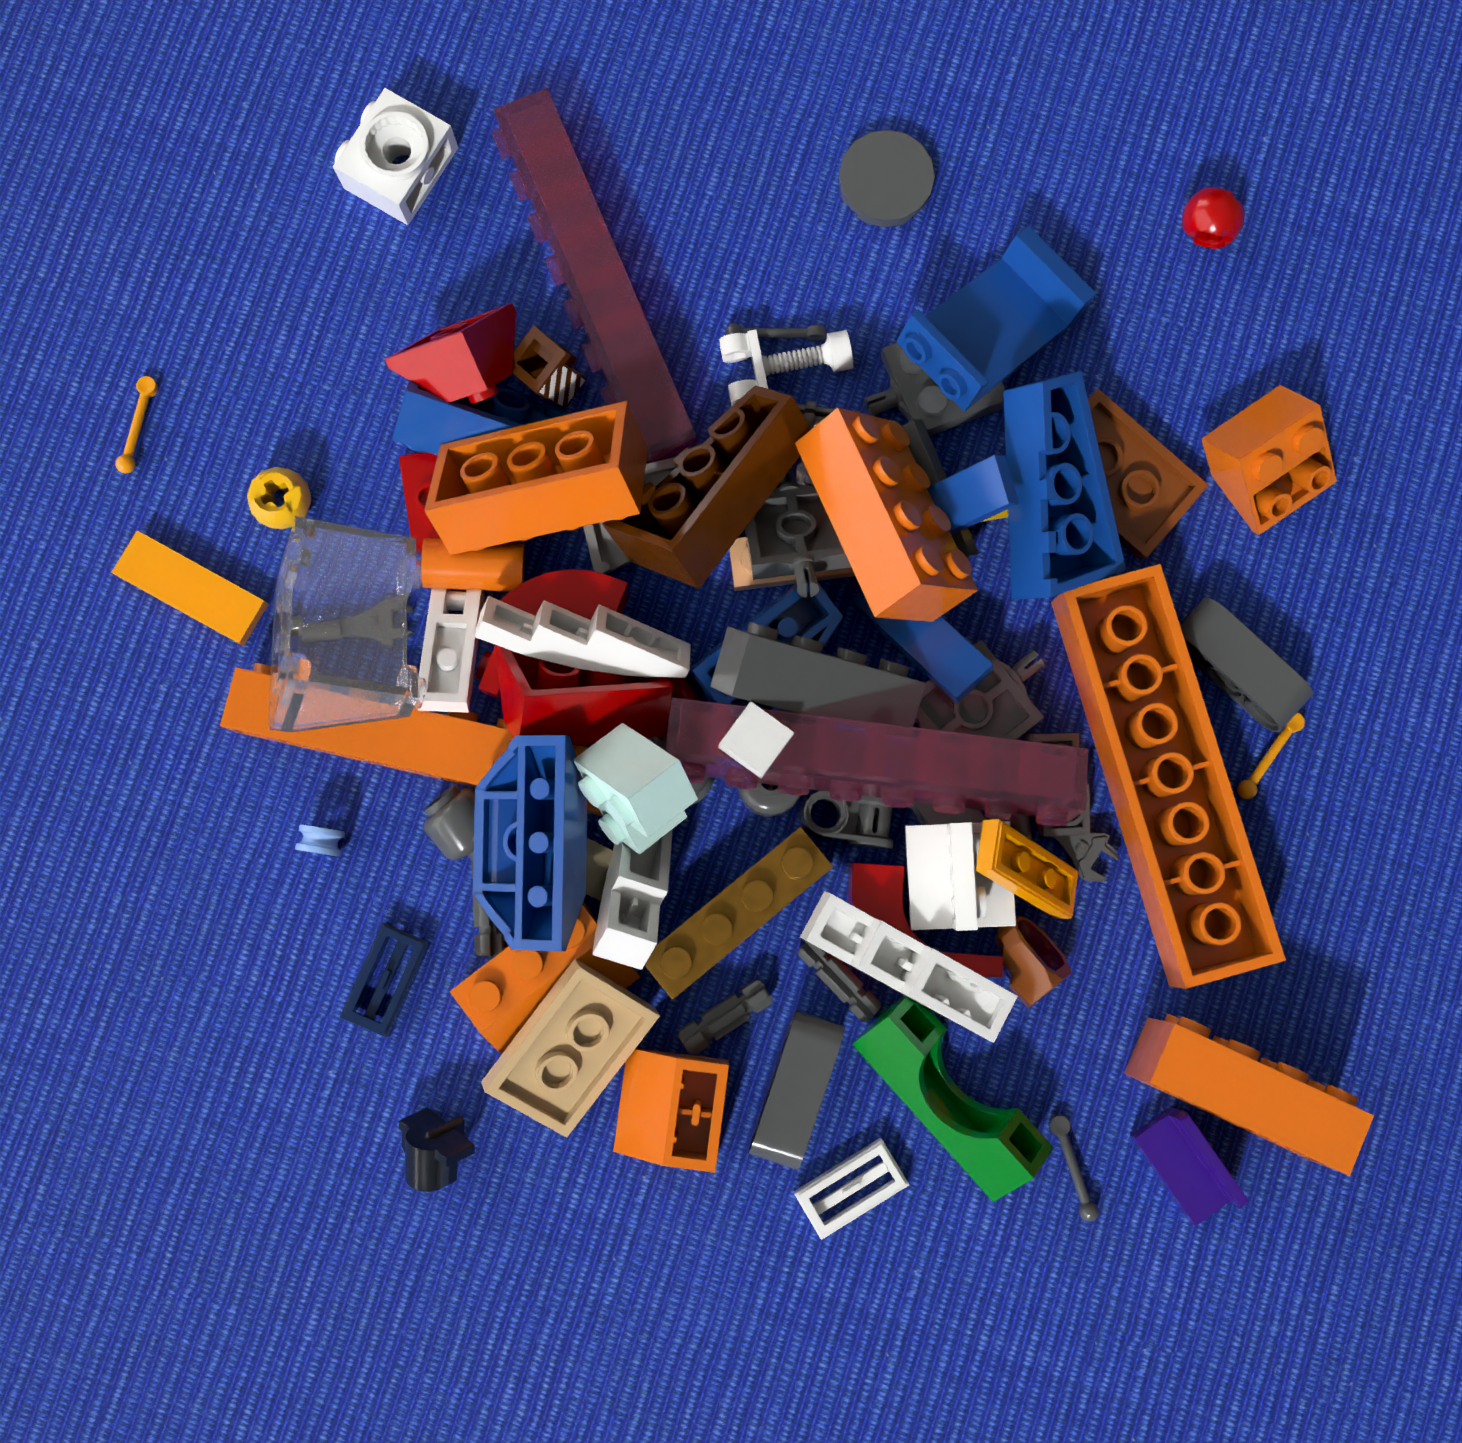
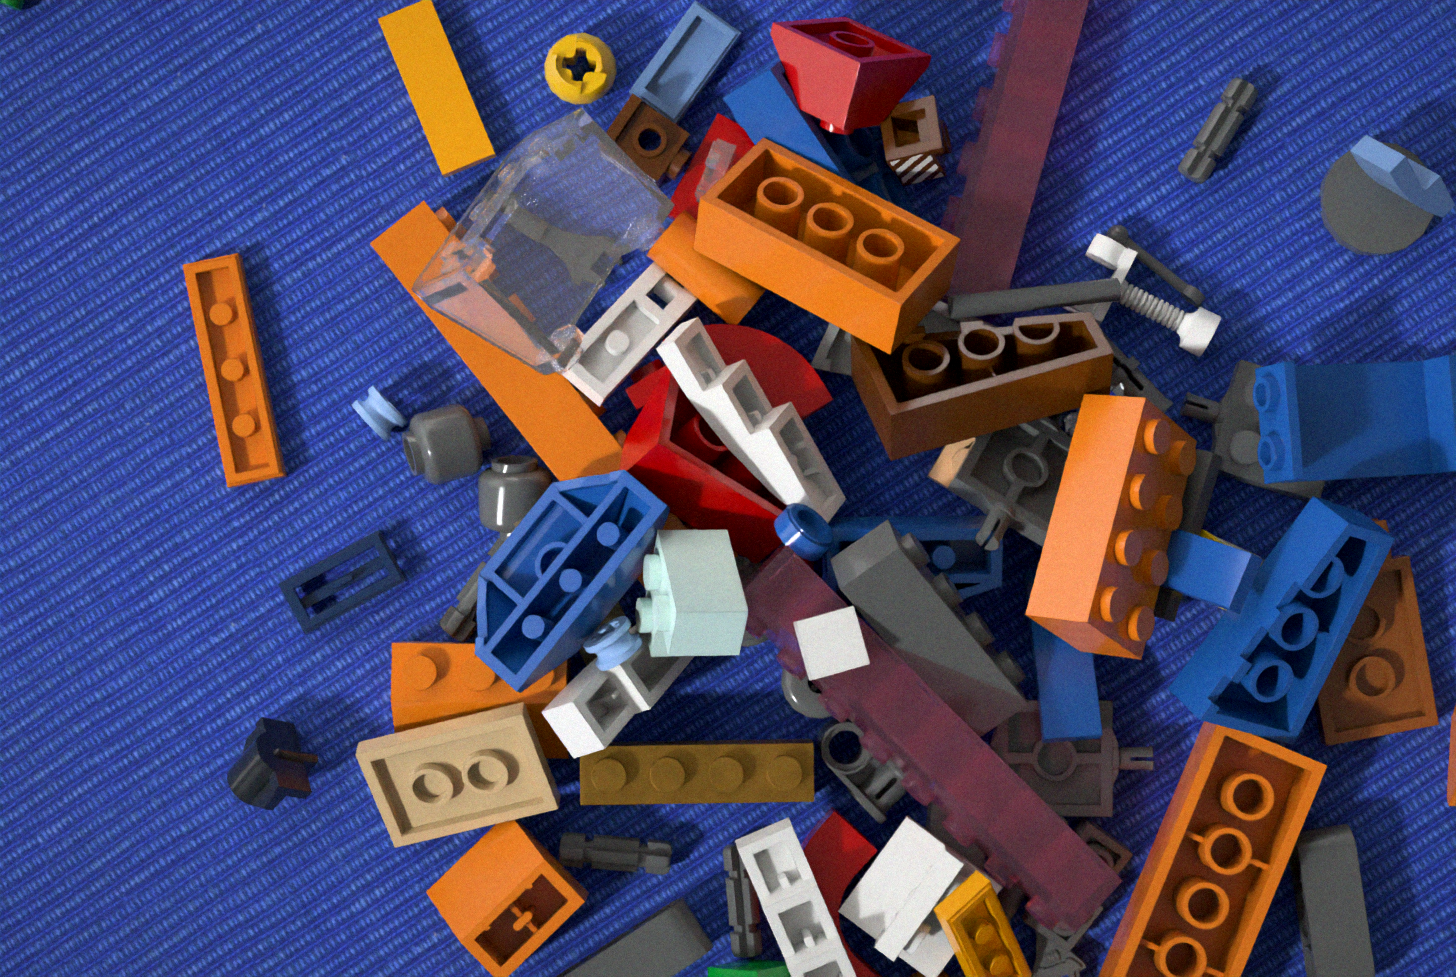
camera: 40 degrees right, 5 degrees up
(195, 892) = (234, 370): none -> orange tile
(351, 442) = (685, 62): none -> medium blue tile
(382, 824) = (446, 444): none -> dark grey head
(386, 512) = (666, 160): none -> reddish brown brick
(420, 481) = (717, 165): none -> clear tile
(605, 866) = (613, 643): none -> light blue bush
(677, 681) = (804, 531): none -> blue tile
(709, 409) = (1034, 298): none -> dark grey bar
(746, 213) = (1218, 130): none -> dark grey axle
(885, 146) = (1403, 176): none -> medium blue slope

